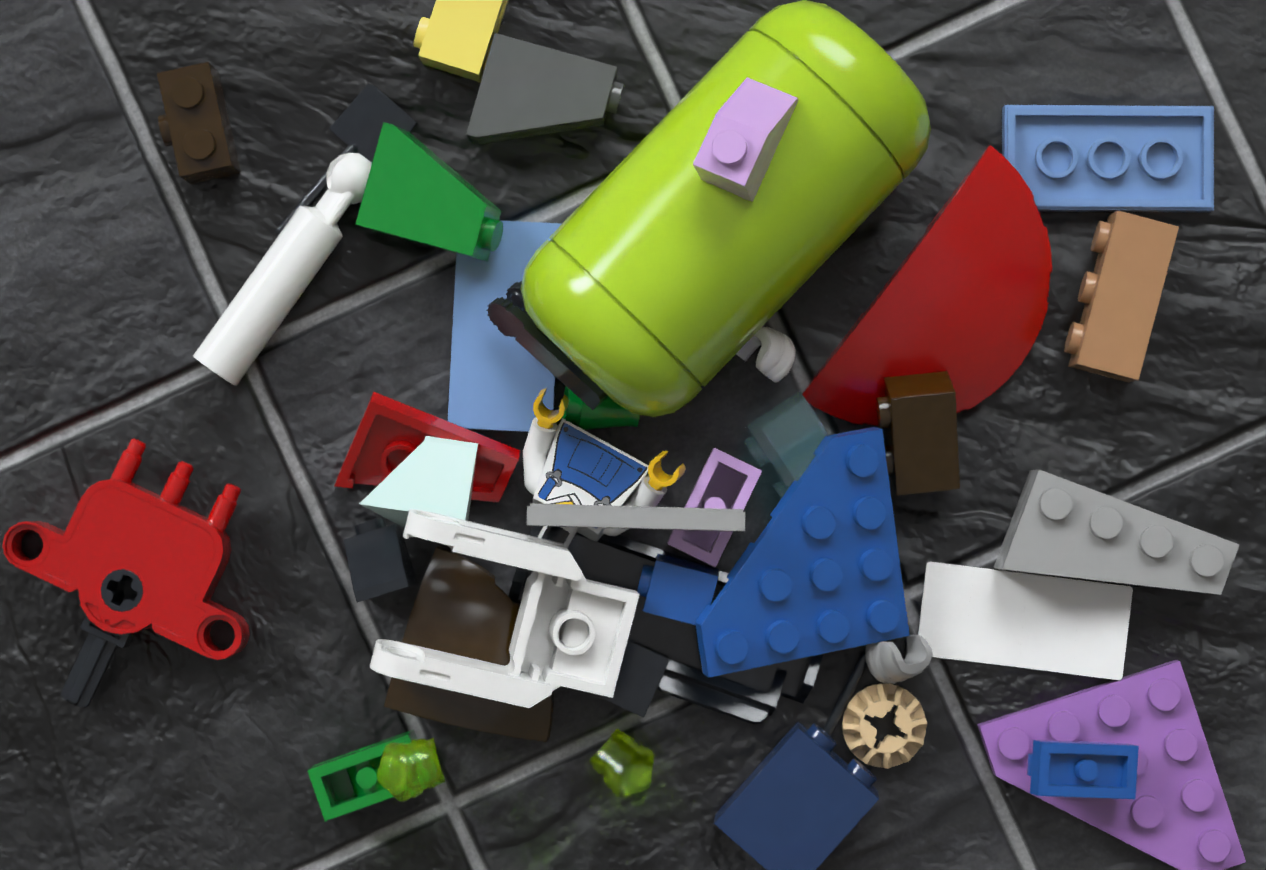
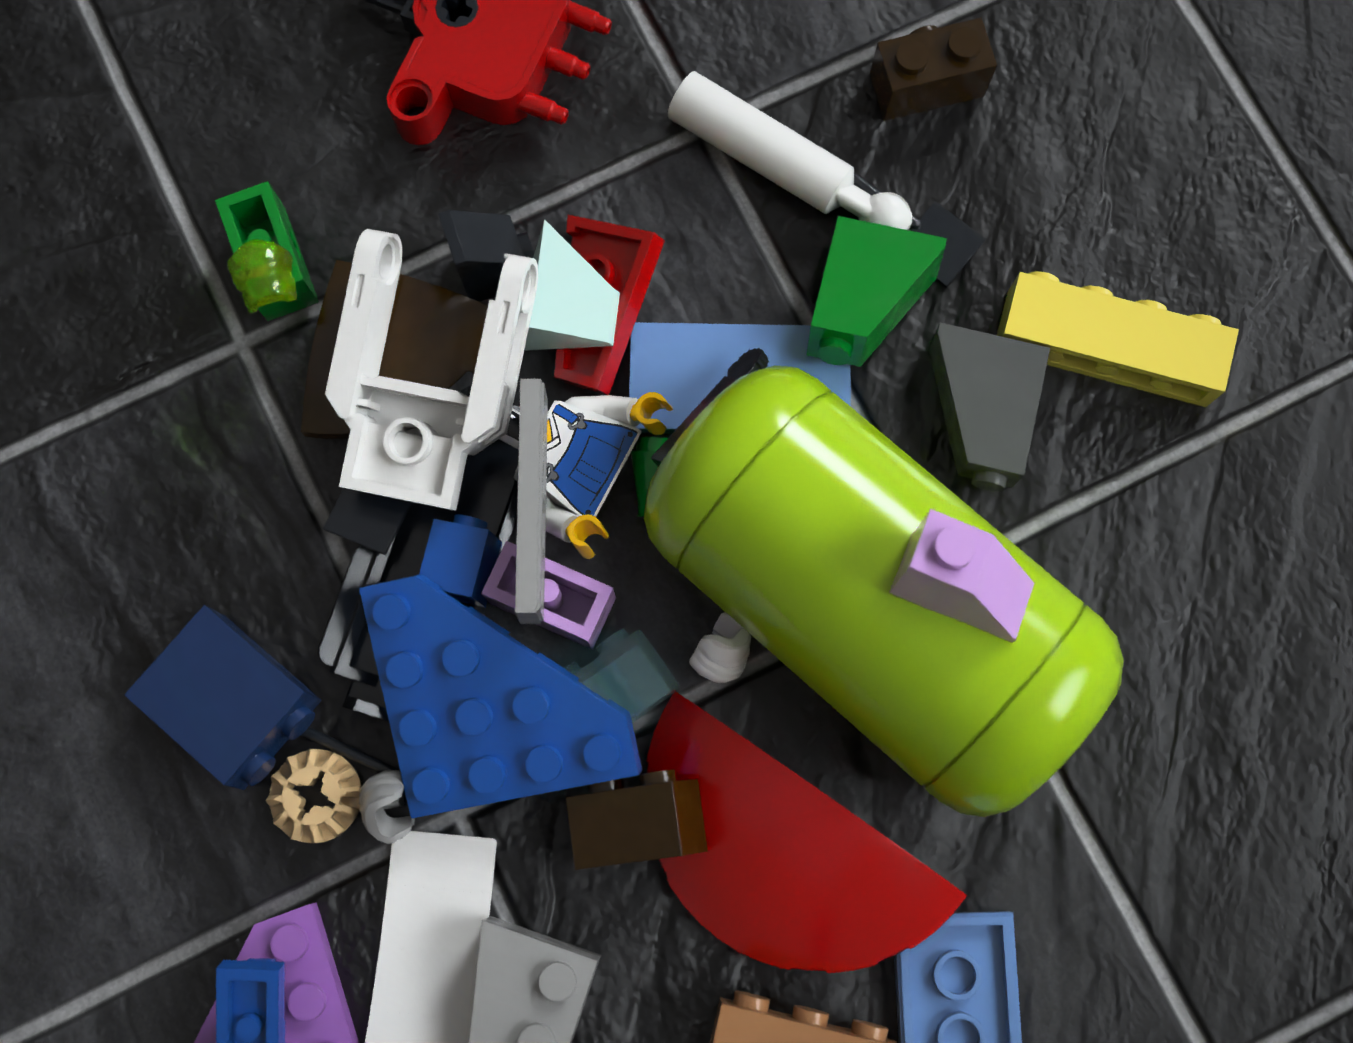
camera: 85 degrees right, 10 degrees down
(624, 764) = (275, 513): clear neon green arm -> none

